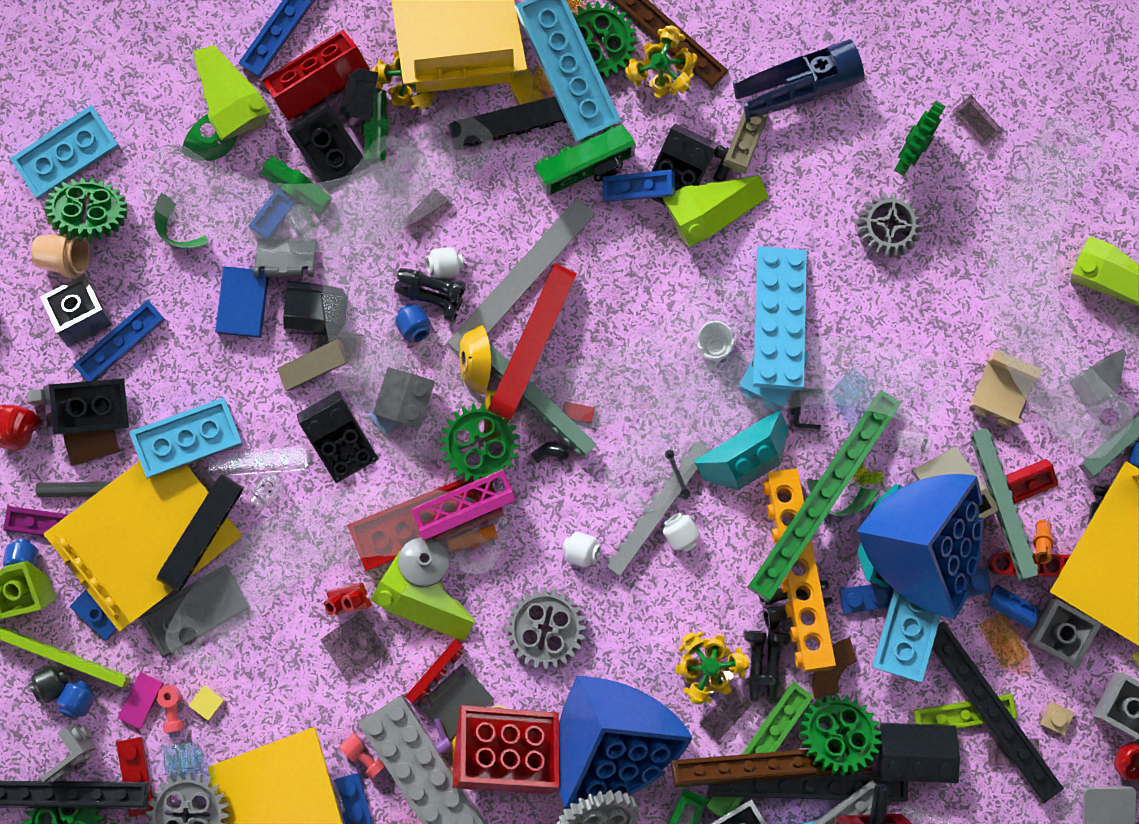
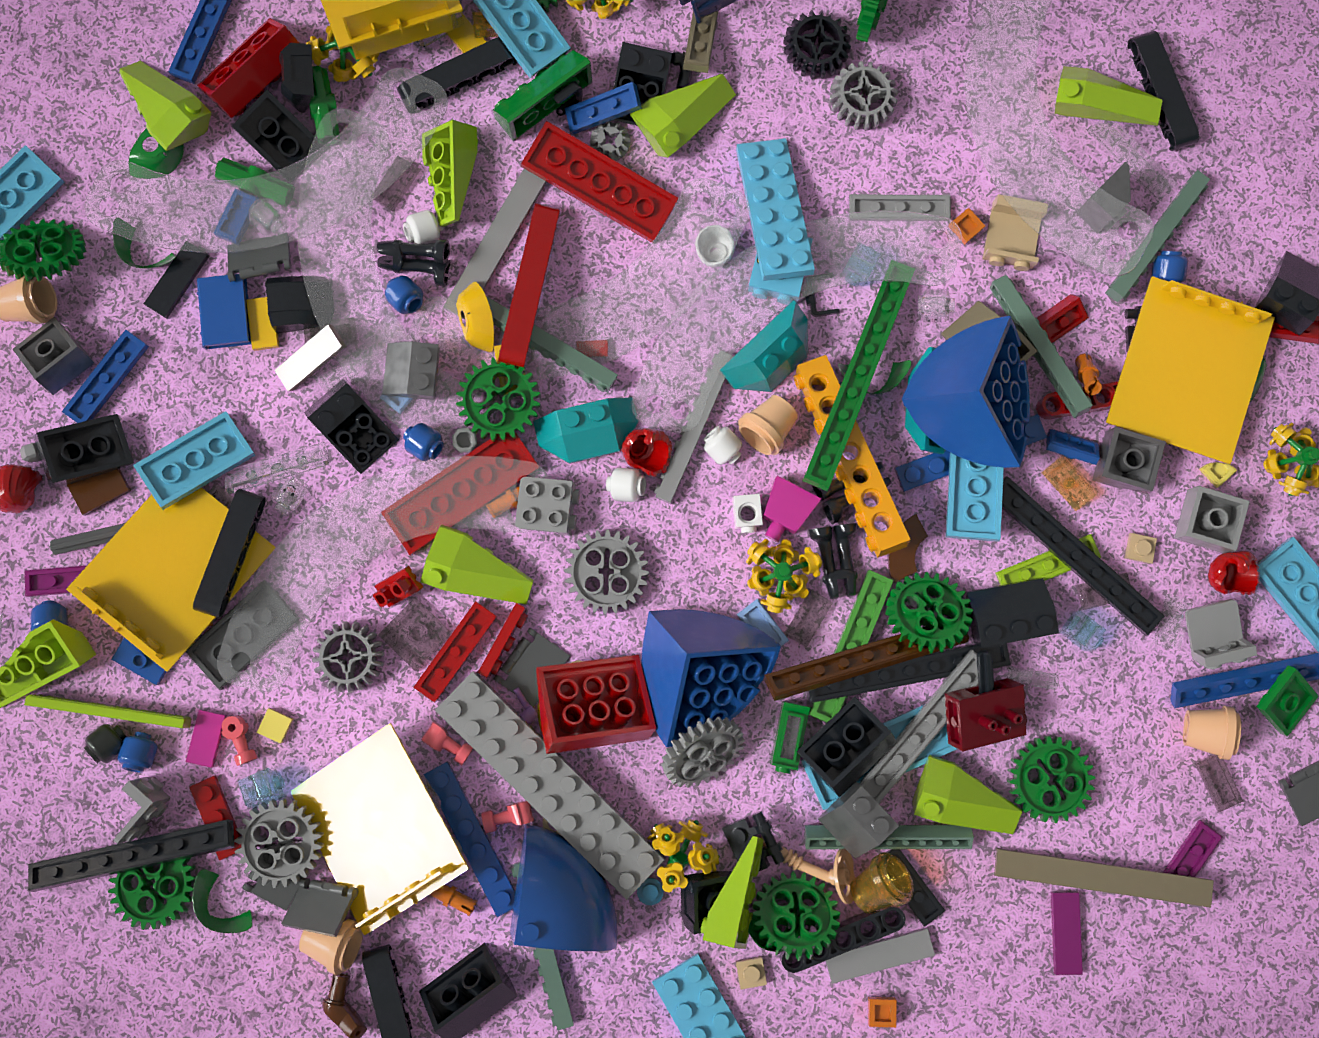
camera: 20 degrees left, 0 degrees up
(201, 265) = (175, 282): none -> black tile
(272, 325) = (261, 331): none -> yellow tile
(289, 642) = (348, 669): none -> light grey gear
(388, 671) = (455, 652): none -> red plate
(401, 467) = (423, 442): none -> blue head
(423, 573) = (466, 541): light grey dish -> none
(439, 474) = (464, 440): none -> light grey tile
(467, 513) = (499, 472): dark pink fence -> none
(483, 209) = (450, 163): none -> lime wedge
(503, 553) = (547, 505): none -> light grey bracket
(551, 449) = (571, 391): black arm -> none
(557, 489) = (586, 429): none -> teal wedge
(609, 522) = (647, 450): none -> red hair
(620, 255) = (599, 182): none -> red plate
(635, 227) = (622, 141): none -> light grey gear
(679, 704) = (758, 617): none -> light blue tile
(685, 493) = (718, 404): black hinge -> none
(690, 590) = (747, 501): none -> white brick
(728, 523) = (768, 425): none -> light nougat piece
(728, 605) = (787, 508): none -> dark pink torso
(847, 163) = (836, 44): none -> black gear
(863, 476) = (893, 350): clear neon green arm -> none
(923, 343) = (926, 204): none -> light grey tile
(961, 372) = (969, 225): none -> orange plate
(983, 785) = (1083, 631): none -> clear light blue brick

